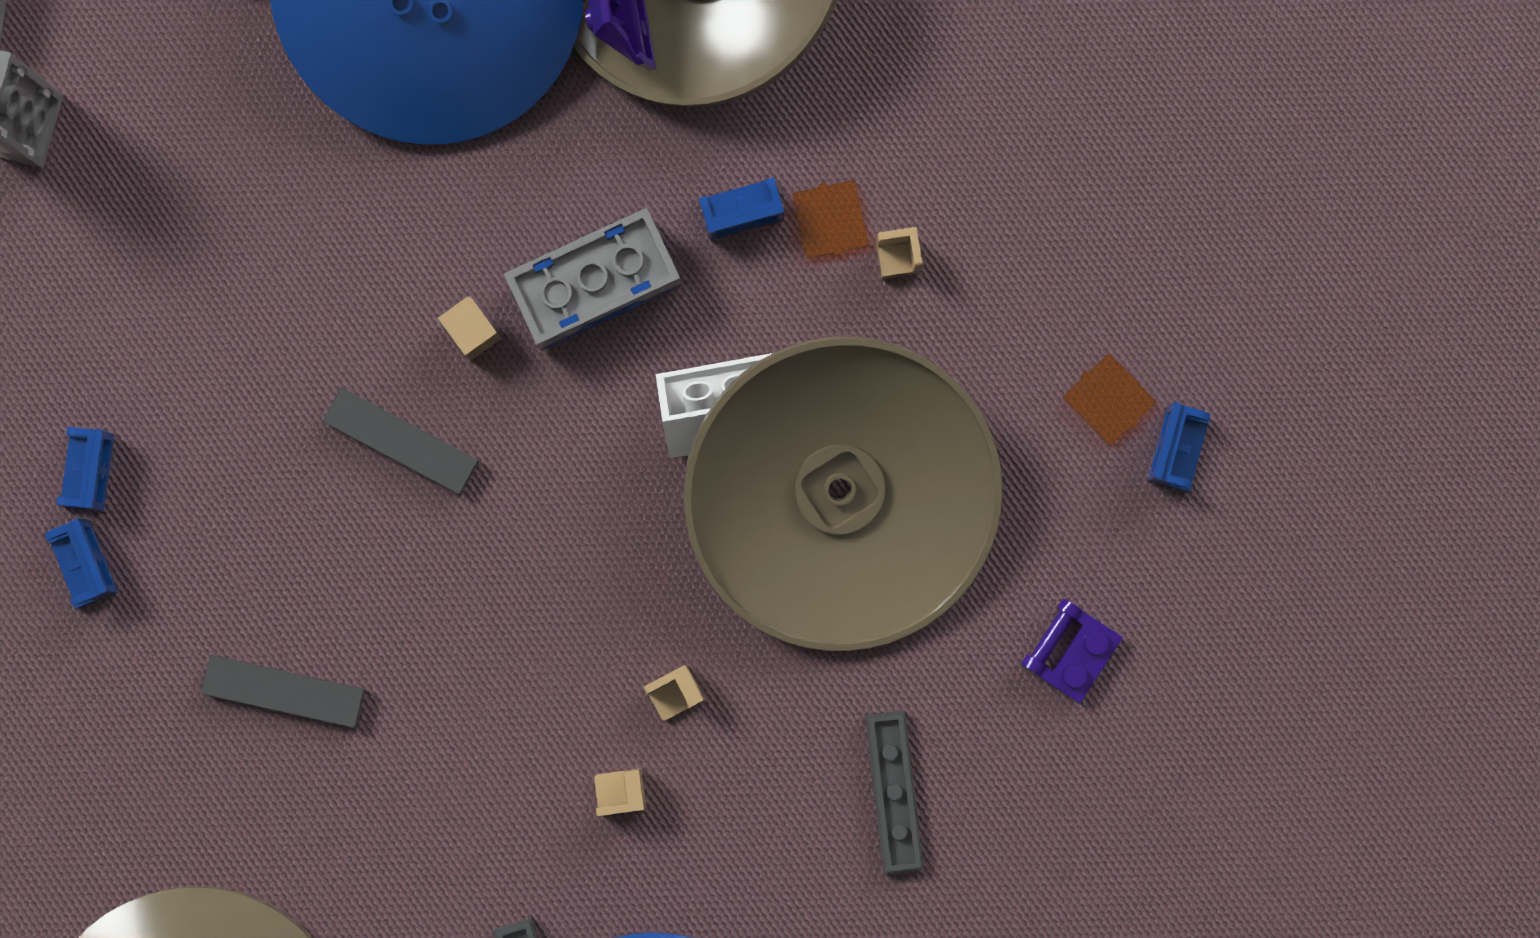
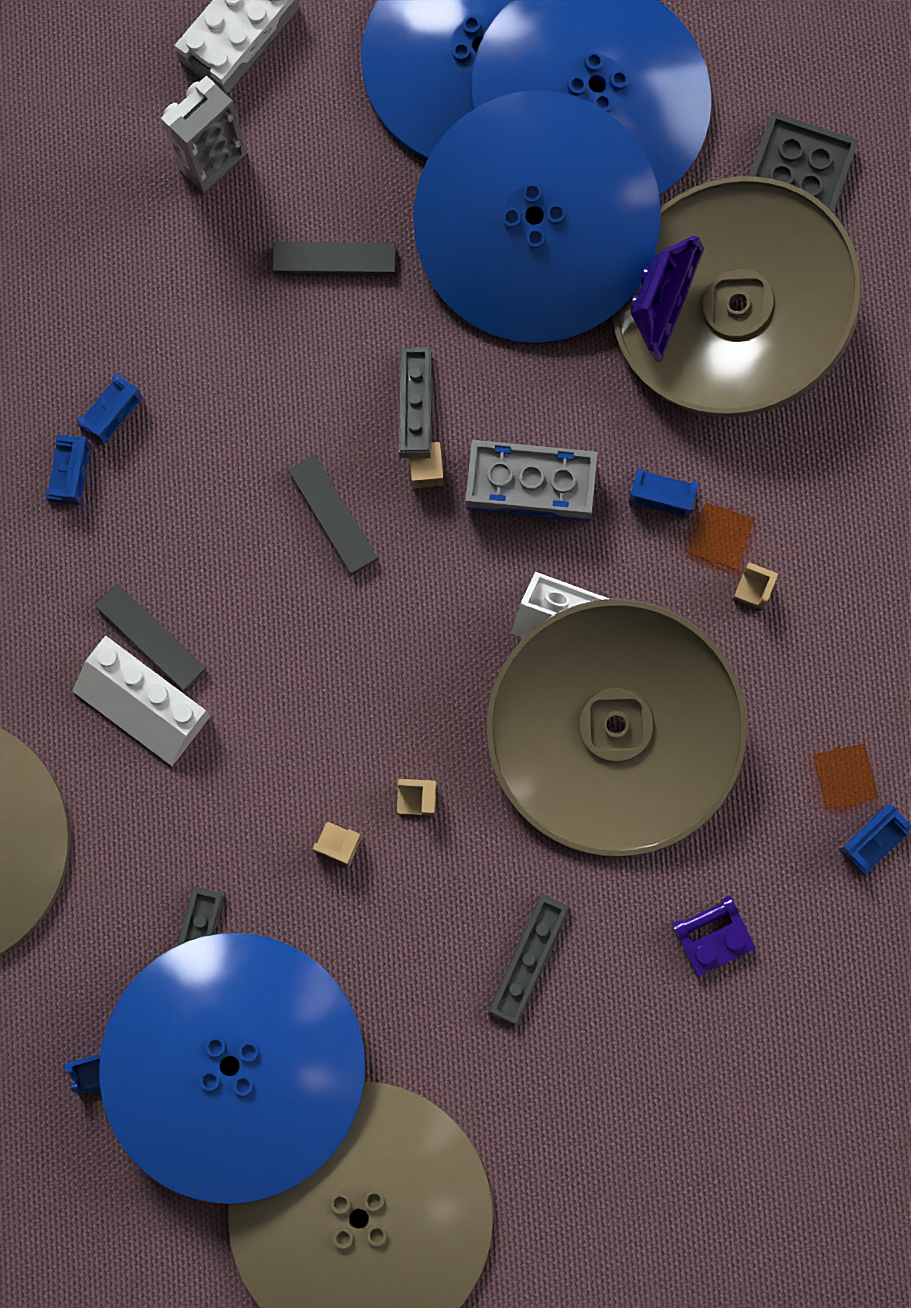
camera: 35 degrees right, 5 degrees down
(231, 158) = (334, 258): none -> dark grey tile
(314, 767) = (139, 701): none -> white slope
(417, 267) = (415, 403): none -> dark grey tile

